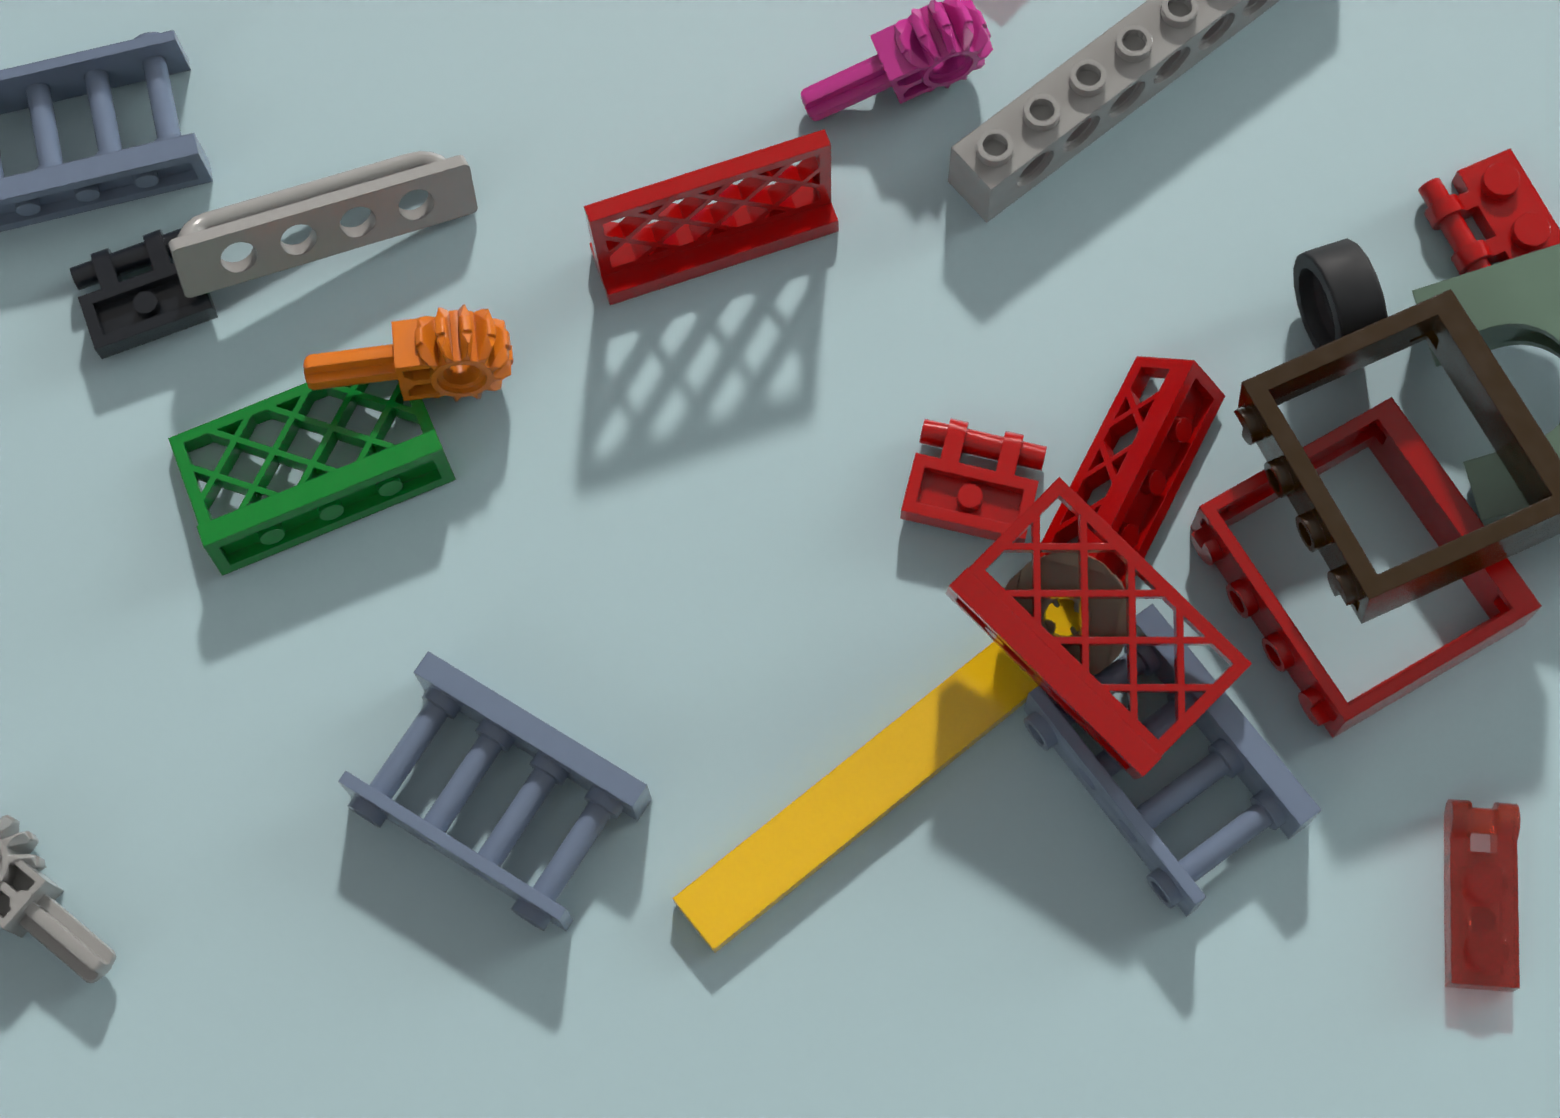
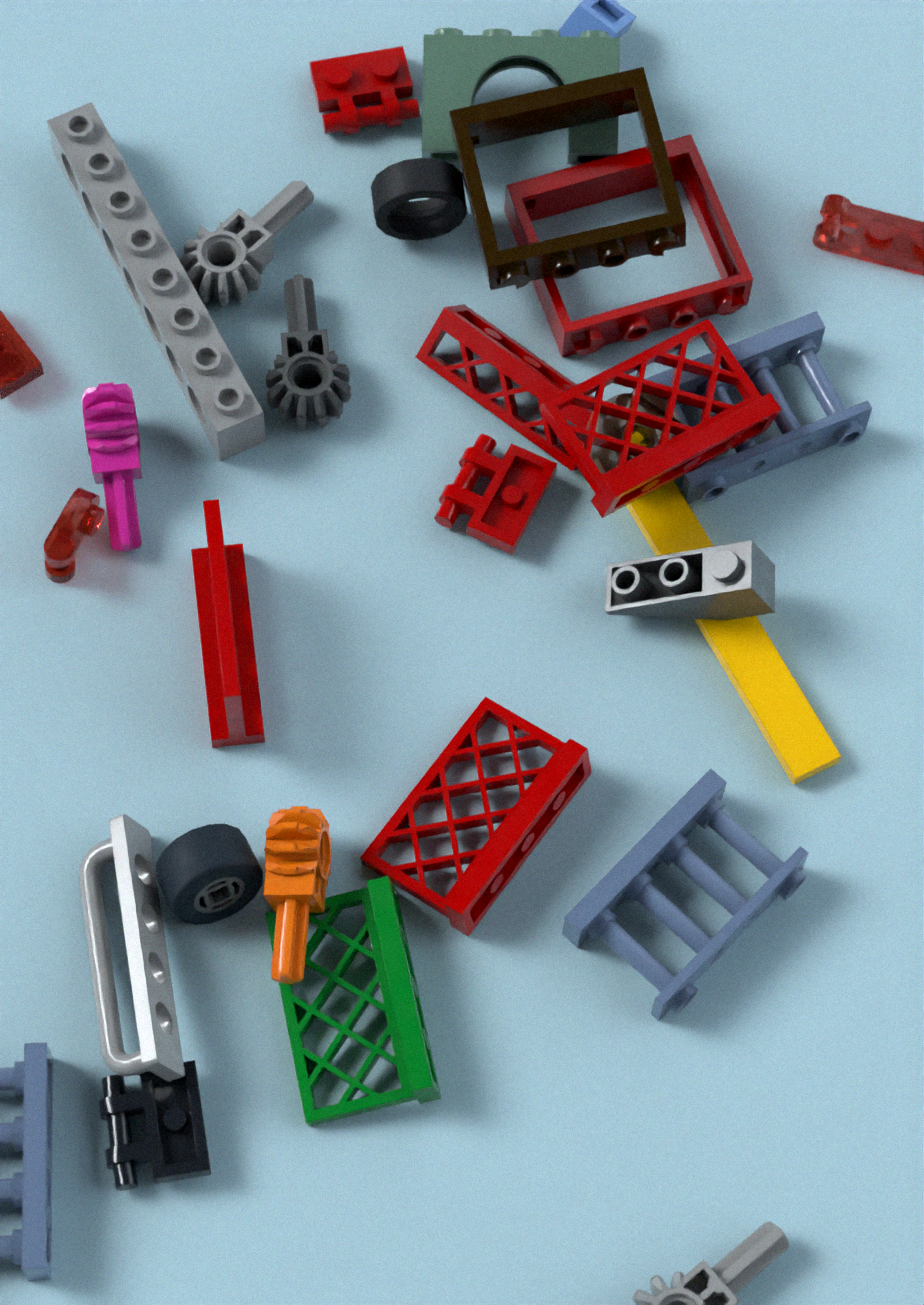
camera: 85 degrees left, 5 degrees down
(421, 267) = (209, 874): none -> black wheel
(544, 591) = (507, 846): none -> red fence
(804, 40) = (79, 518): none -> clear red plate
(892, 727) = (694, 584): none -> dark grey slope
(1093, 230) = (306, 361): none -> dark grey gear
(1227, 131) = (243, 244): none -> light grey gear

